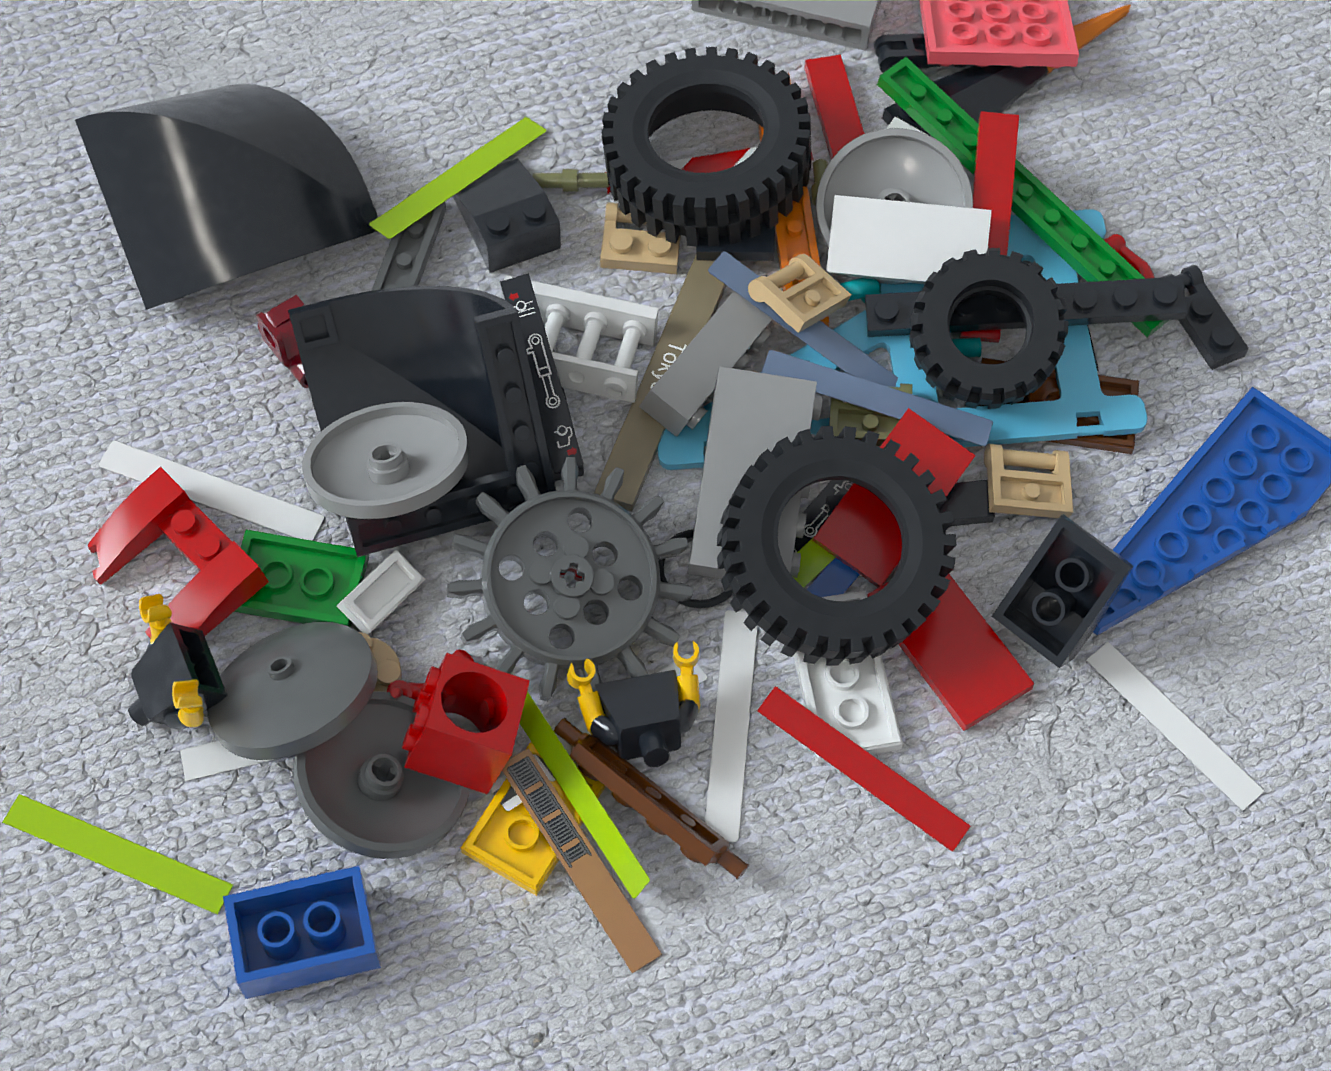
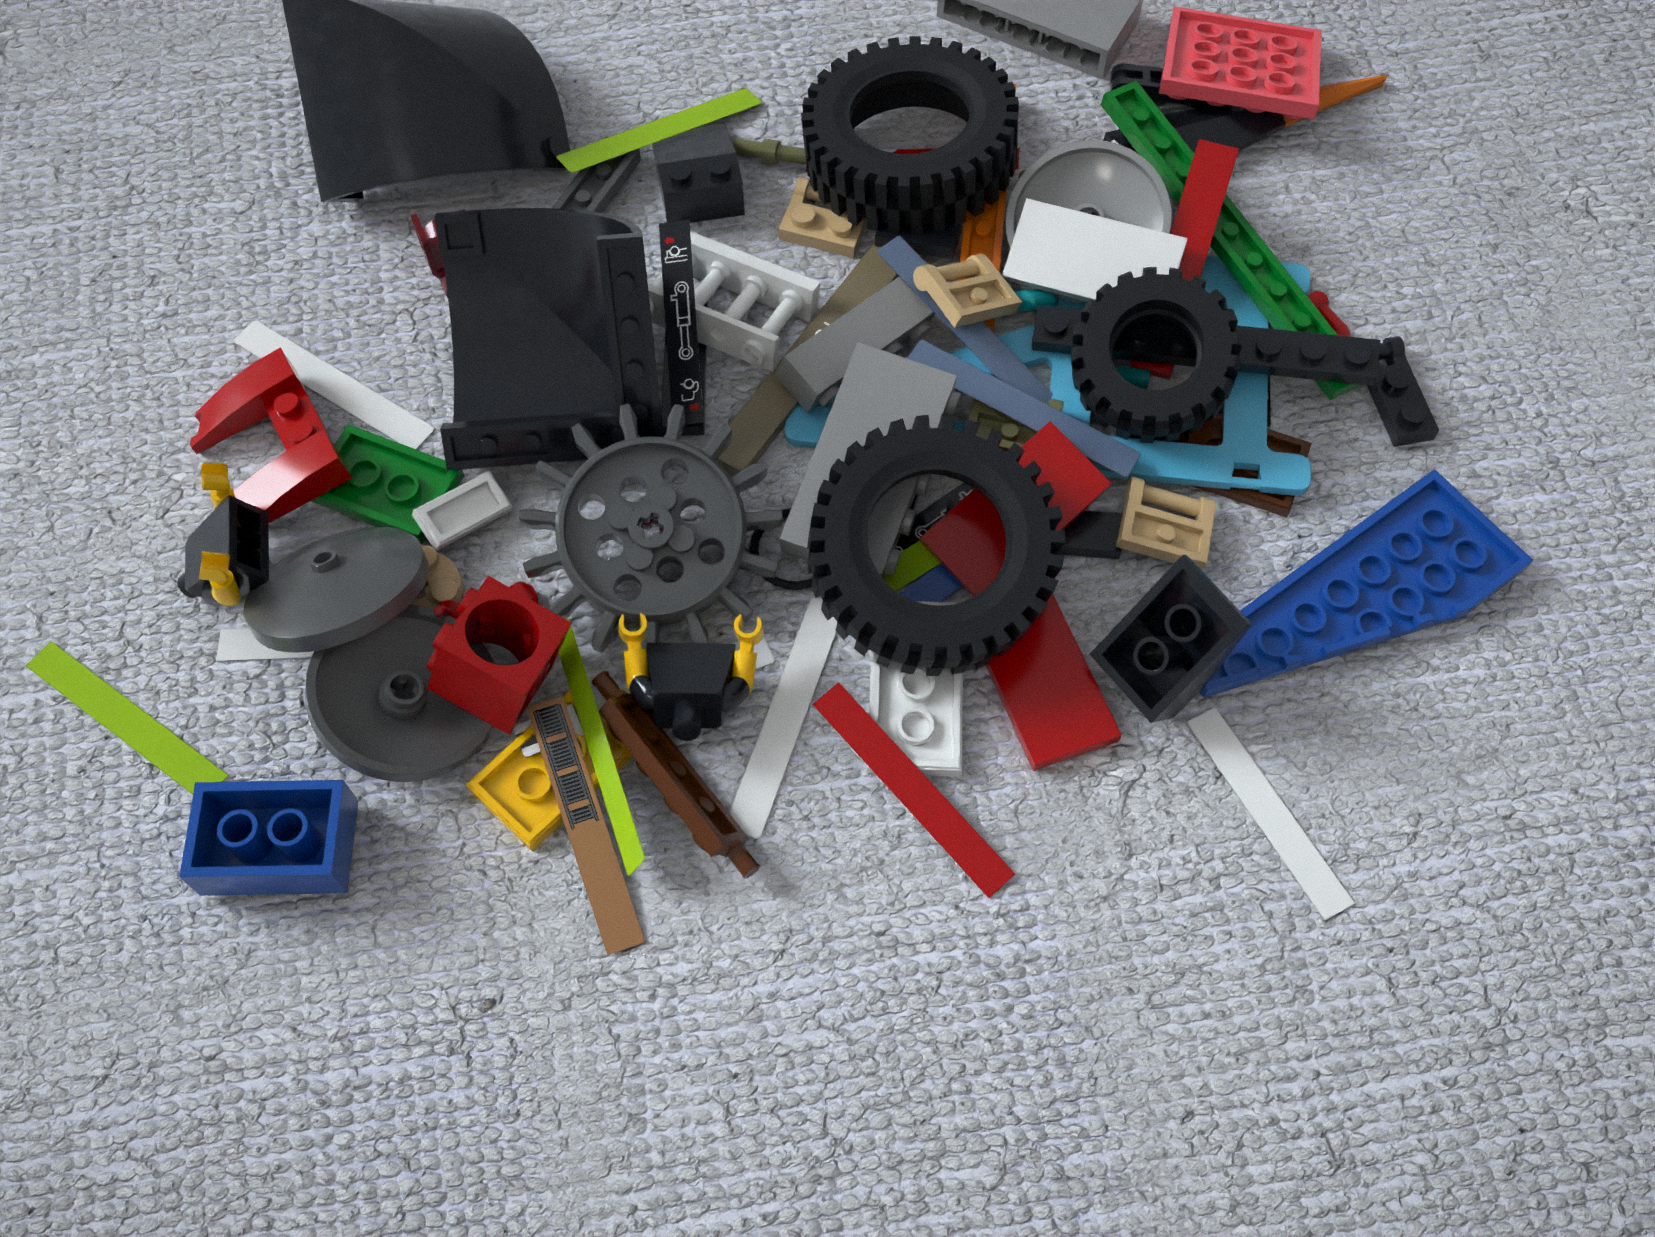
camera: 15 degrees right, 0 degrees up
(386, 460) = (498, 379): light grey dish -> none
(833, 101) = (1055, 112): red tile -> none

